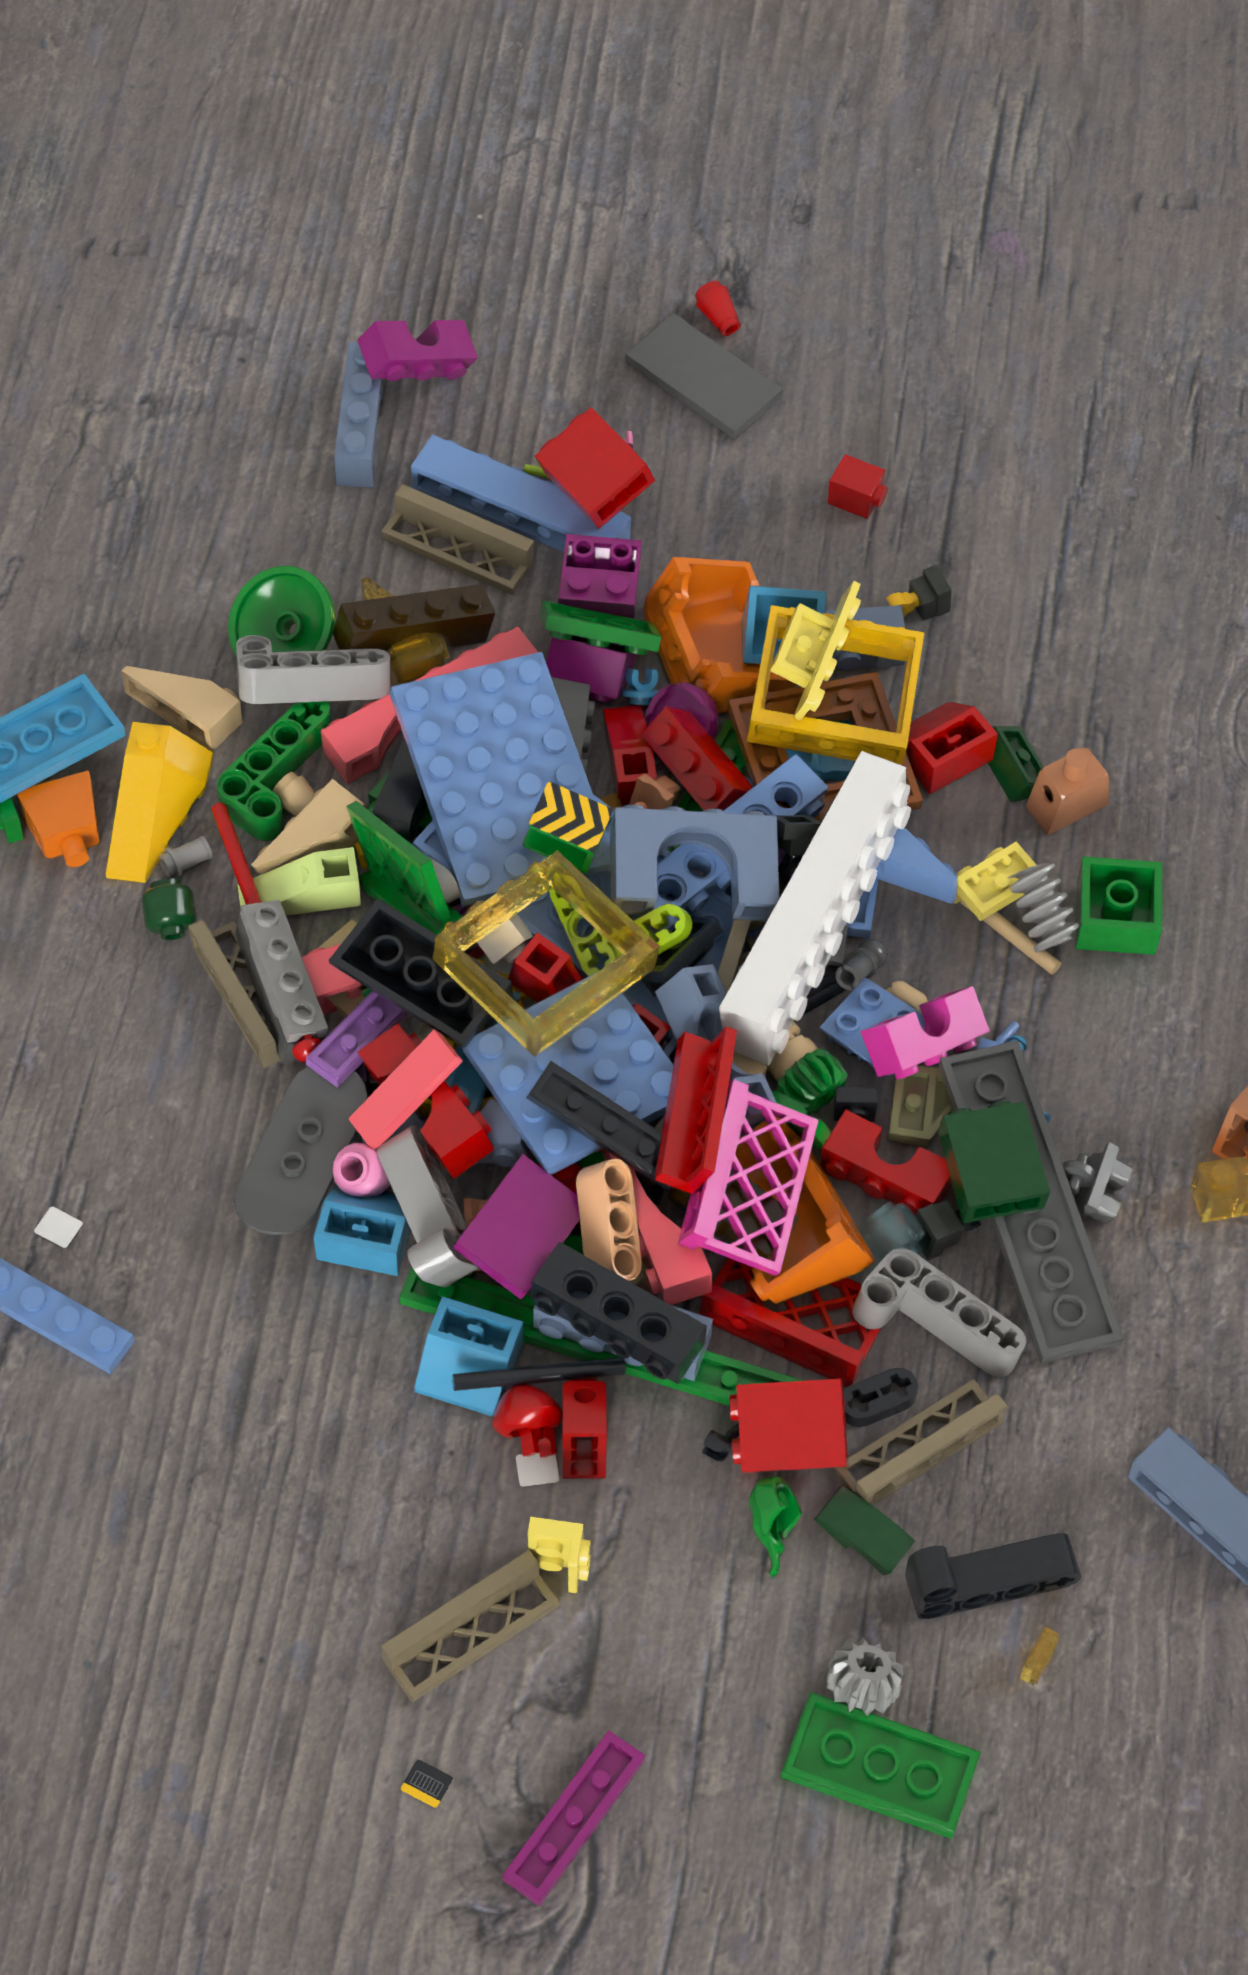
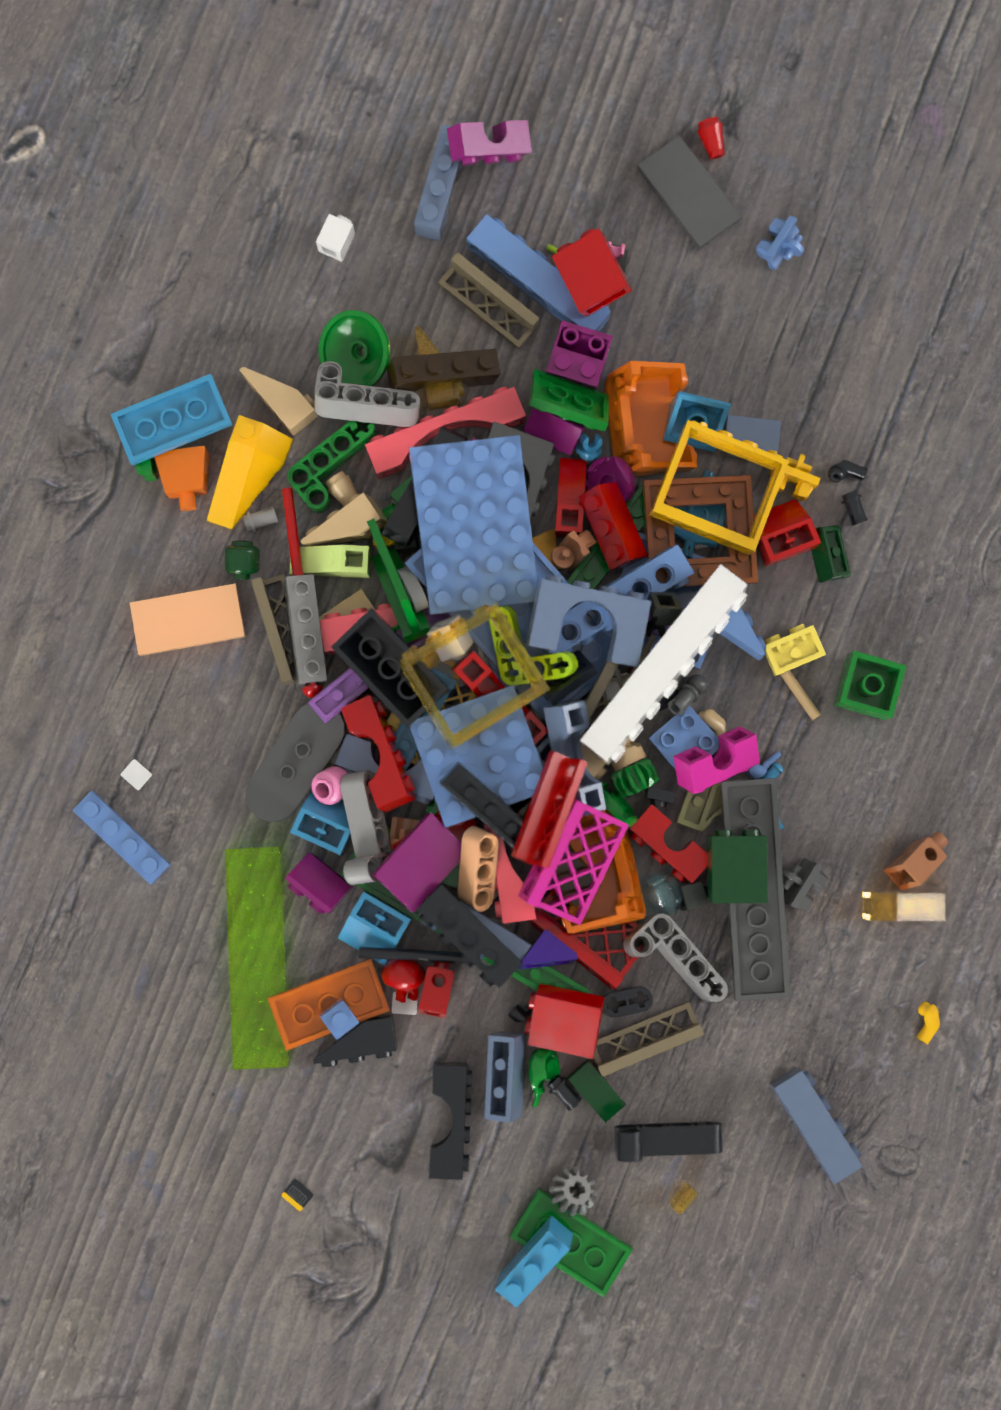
camera: 10 degrees right, 25 degrees up
(101, 1005) = (187, 619): none -> light nougat tile
(226, 500) = (335, 237): none -> white brick
(294, 1447) = (255, 955): none -> clear neon green plate
(370, 1313) = (318, 883): none -> magenta slope
(405, 1089) = (364, 749): coral tile -> none
(419, 1482) = (299, 1007): none -> orange tile
(441, 1482) = (338, 1018): none -> medium blue brick
(459, 1613) = (337, 1095): dark tan fence -> none
(486, 1522) = (367, 1038): none -> black slope
(558, 1546) = (403, 1070): light yellow bracket -> none
(567, 824) = (508, 581): piece -> none
(573, 1818) = (379, 1240): magenta plate -> none
(635, 1563) = (448, 1155): none -> black arch
(718, 1526) = (505, 1076): none -> sand blue brick
(742, 1337) = (548, 952): none -> dark purple slope
(809, 648) = (707, 464): light yellow bracket -> none
(814, 1542) = (564, 1092): none -> black pin
(828, 1785) = (534, 1261): none -> dark azure brick
(848, 409) = (785, 244): none -> medium blue hips
(857, 487) = (775, 311): red brick -> none
(927, 594) = (801, 409): pearl dark grey piece -> none
(944, 673) = (798, 474): none -> yellow hips
(1009, 656) = (844, 469): none -> black arm
(1034, 699) = (854, 507): none -> black pin
(1044, 906) = (820, 680): light grey piece -> none
(1068, 790) = (859, 589): nougat torso -> none

